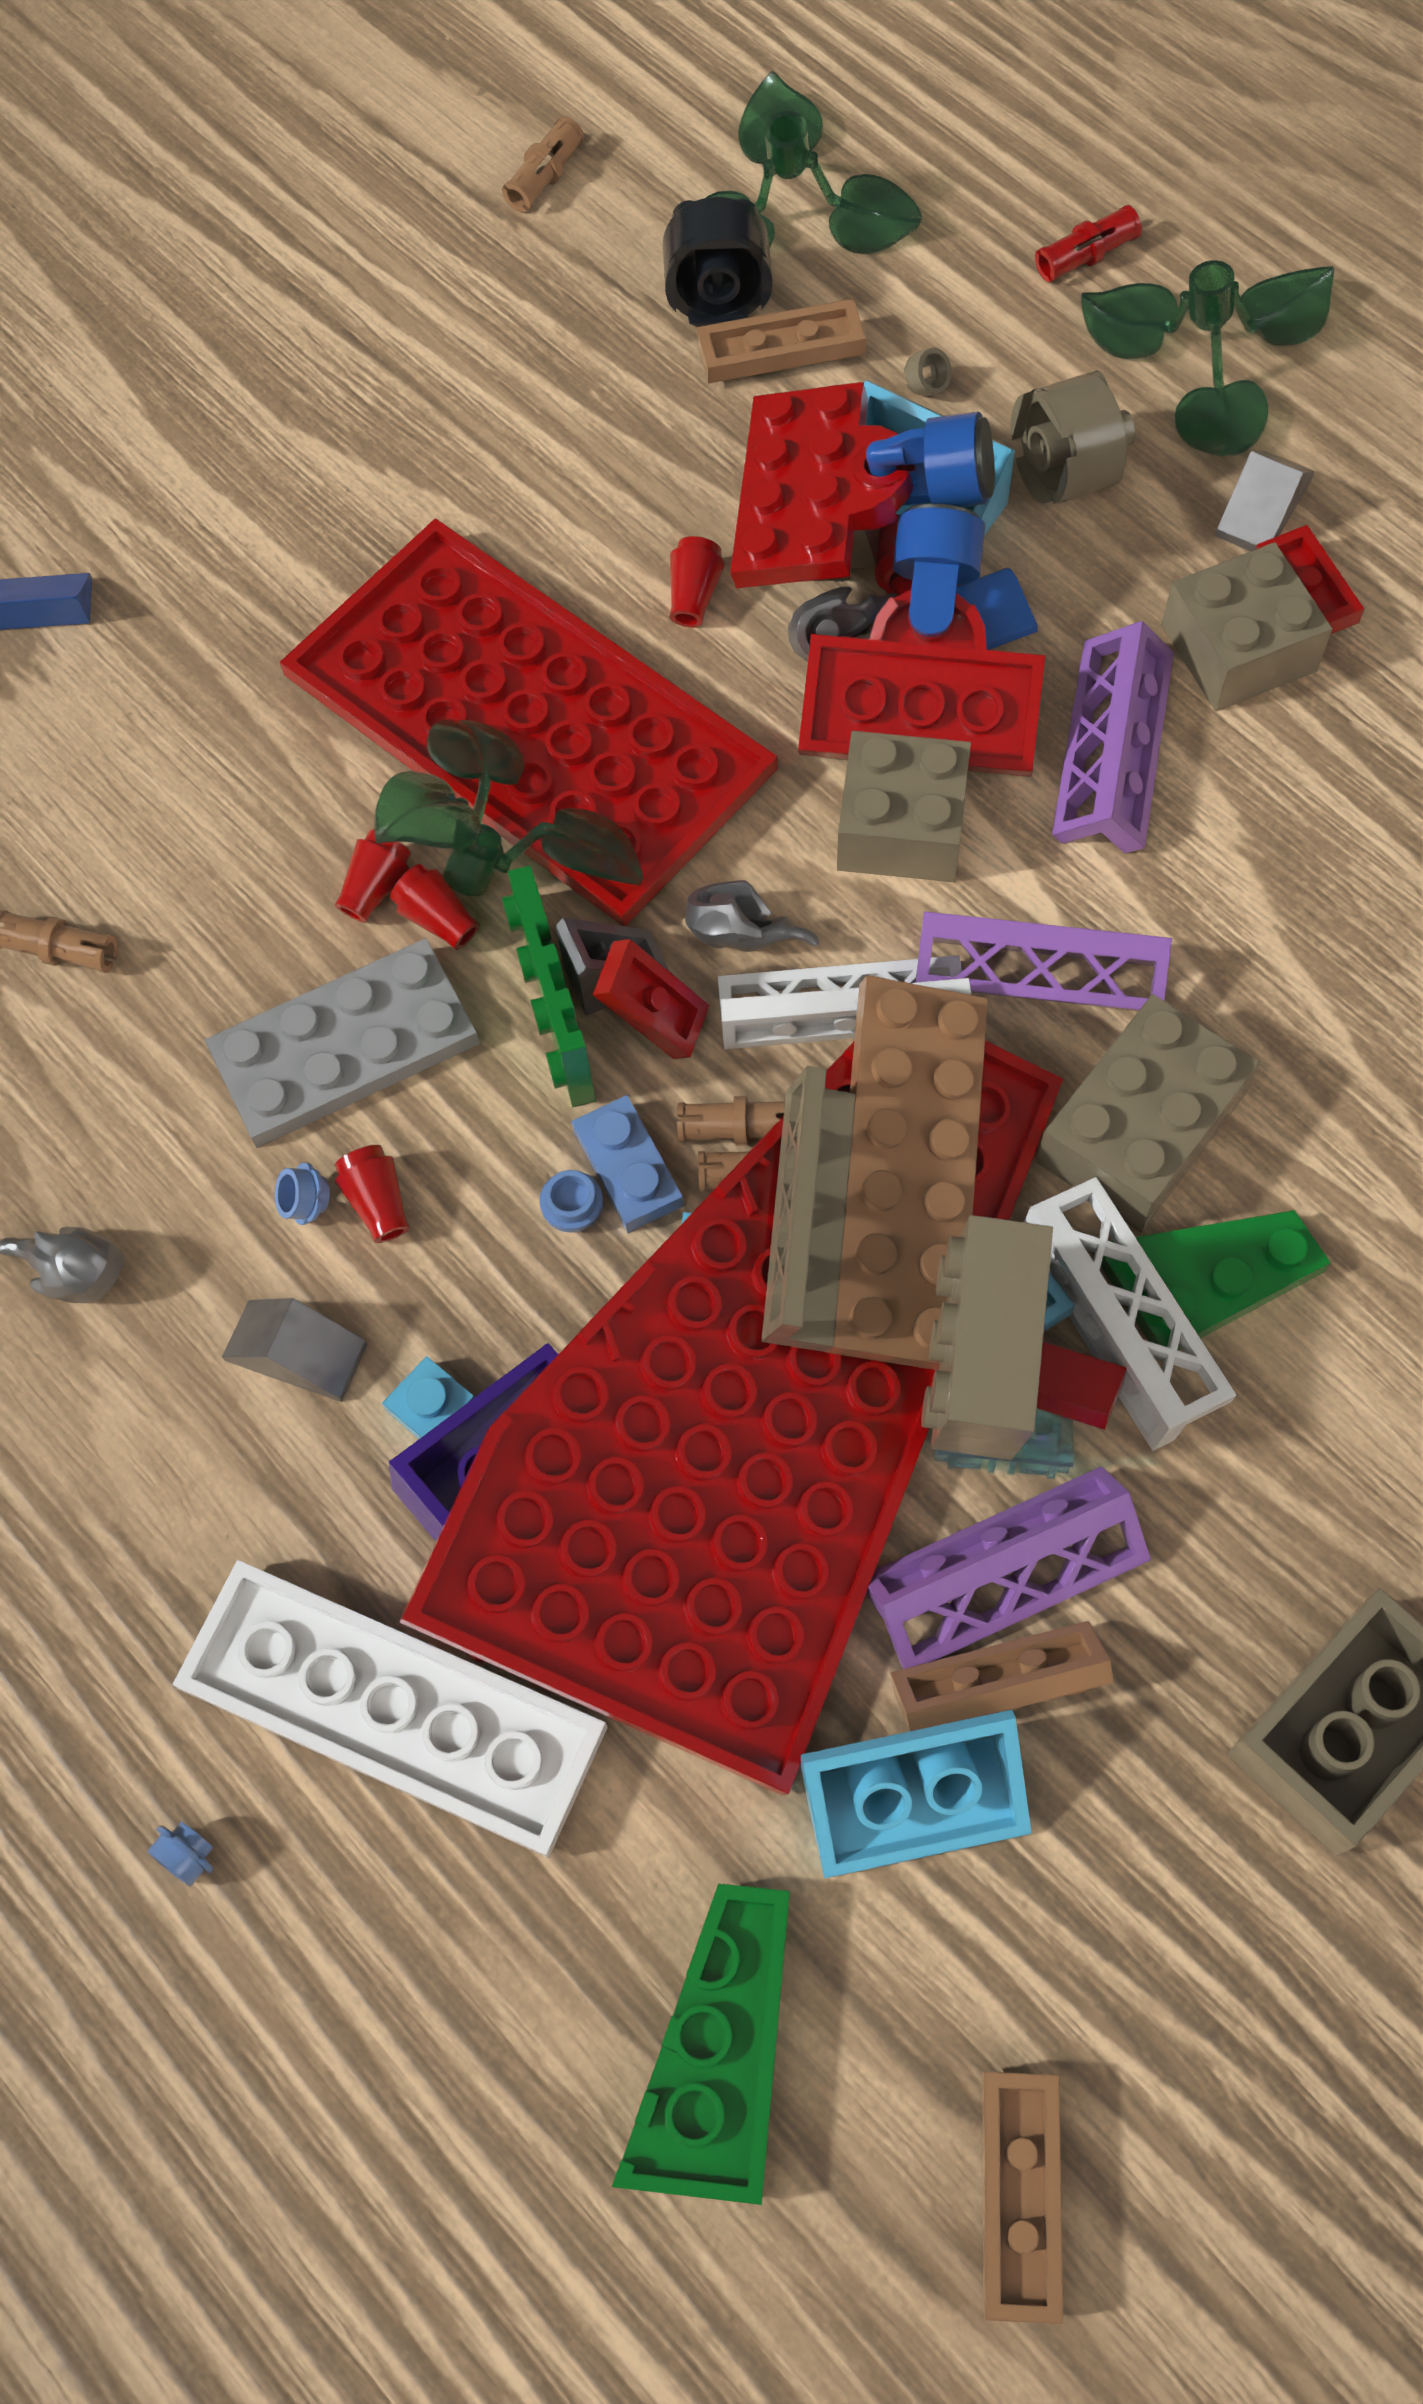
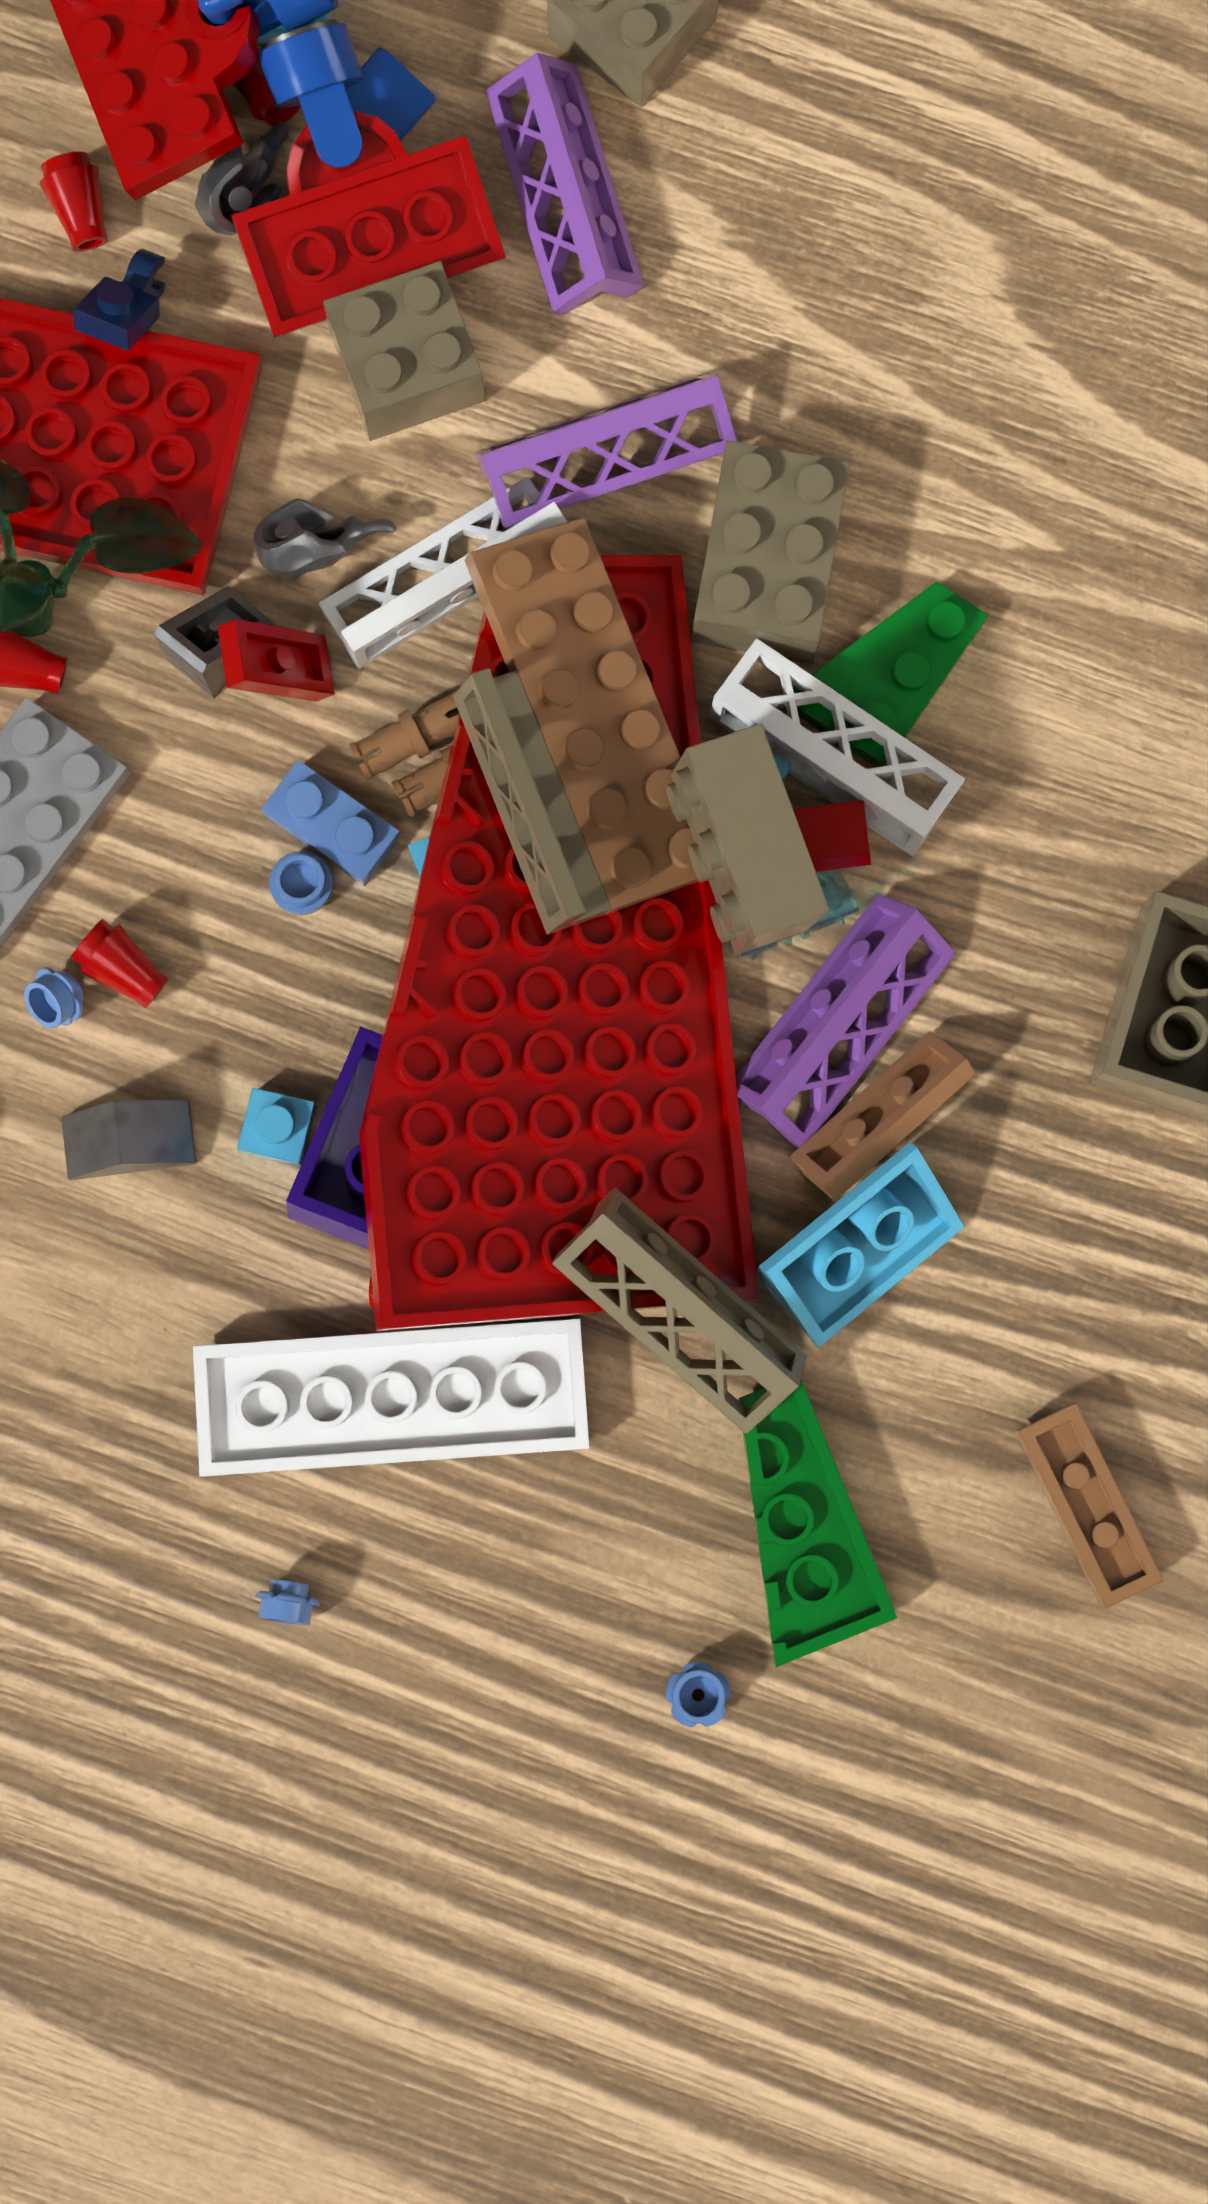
camera: 35 degrees left, 15 degrees up
(500, 2180) = (708, 1710): none -> medium blue plate
(554, 1008) = (231, 753): green wing -> none
(683, 674) = (124, 309): none -> dark blue plate
(726, 1759) = (697, 1295): none -> dark tan fence

